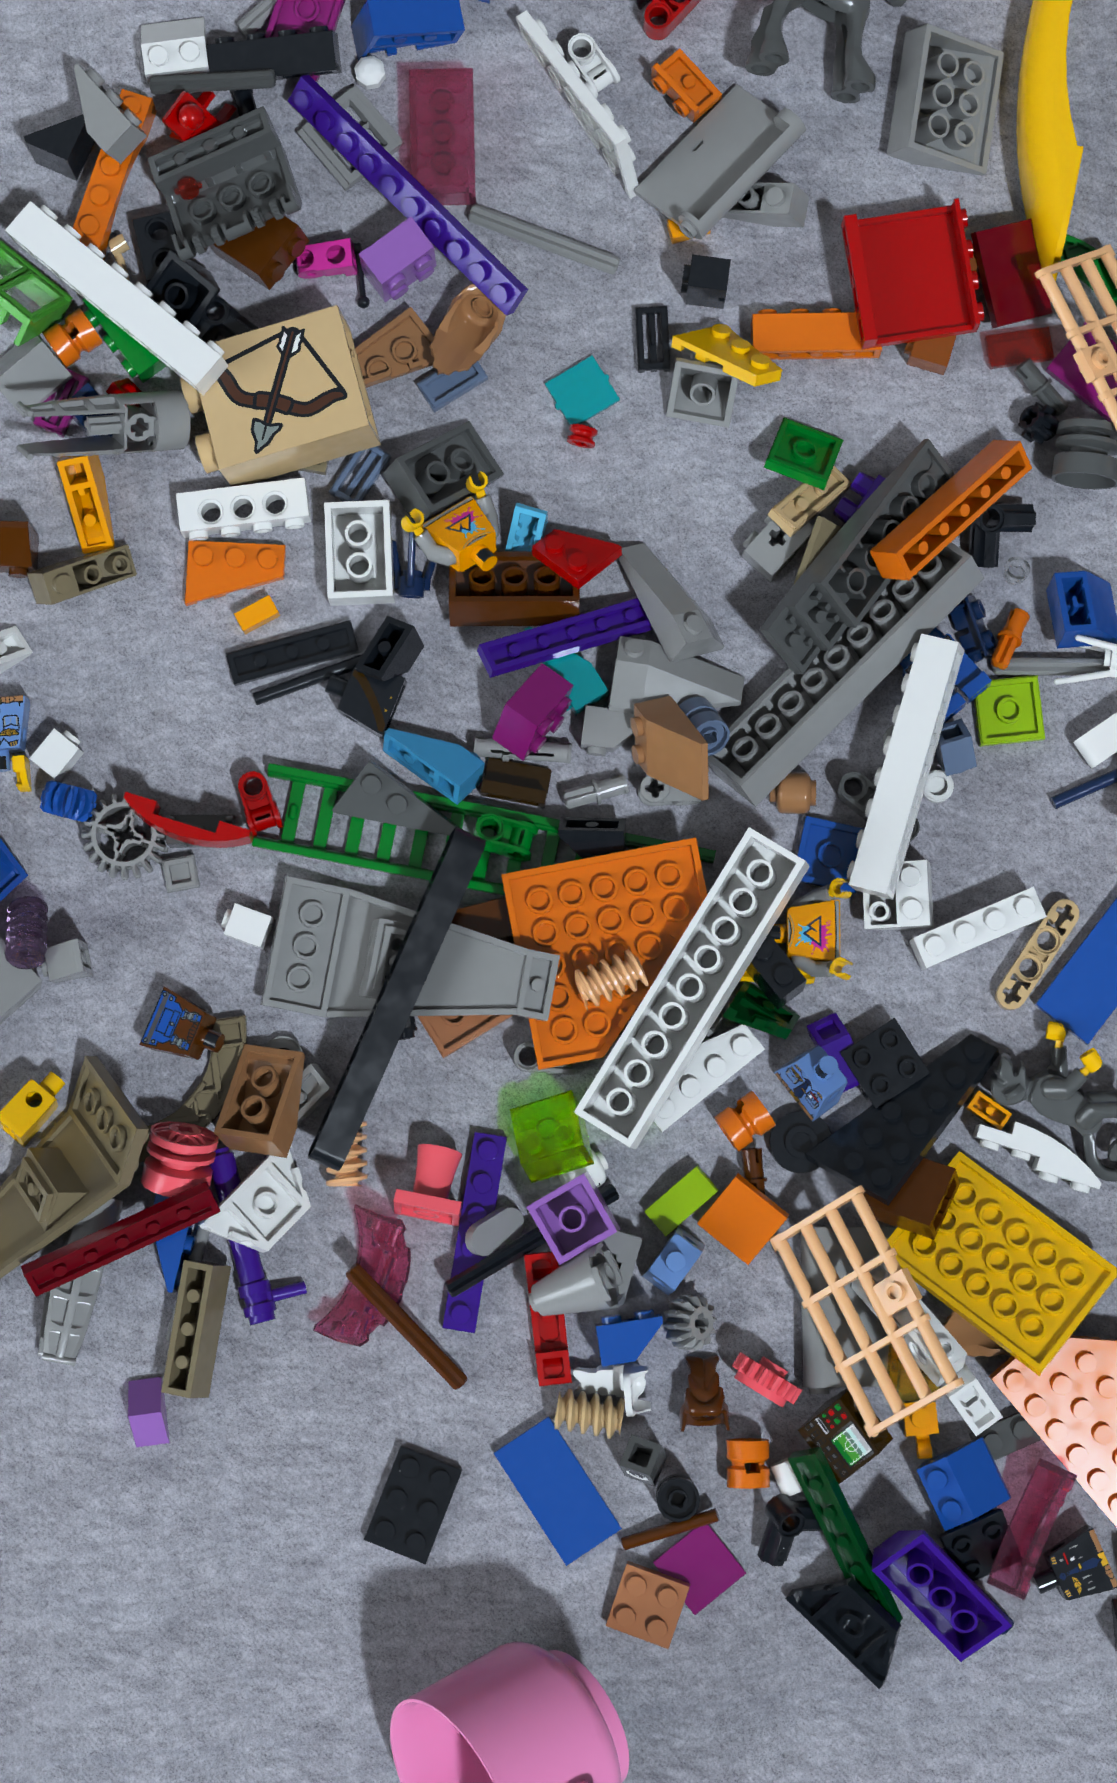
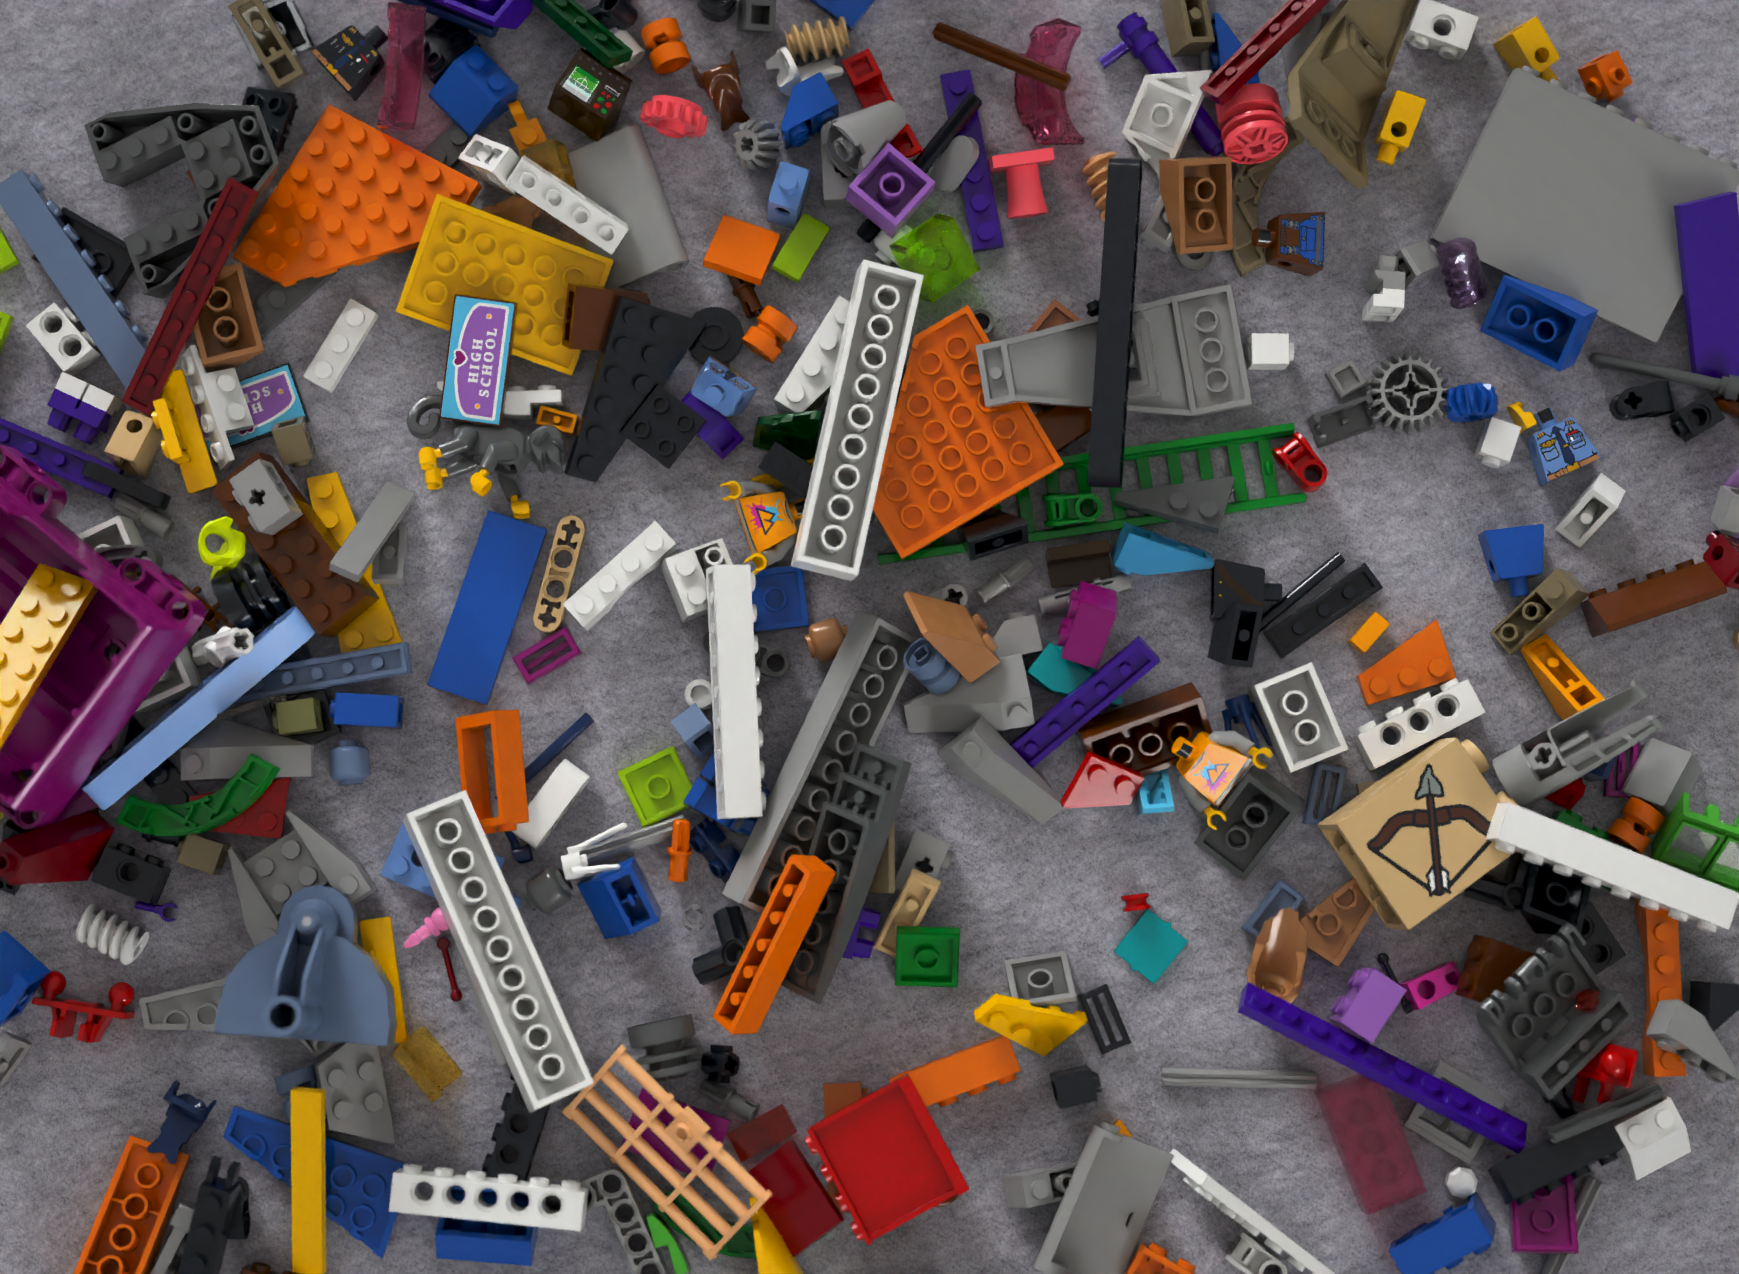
camera: 160 degrees right, 0 degrees up
(84, 638) = (1514, 555): none -> blue torso
(107, 943) = (1387, 291): none -> hips
(118, 246) = (1628, 929): tan hand -> none
(225, 836) = (1396, 411): red slope -> none
(610, 978) = (932, 401): light nougat piece -> none
(886, 1298) = (592, 210): light nougat door -> none
(1049, 884) = (552, 666): none -> magenta tile
(1051, 1192) = (478, 360): none -> tile

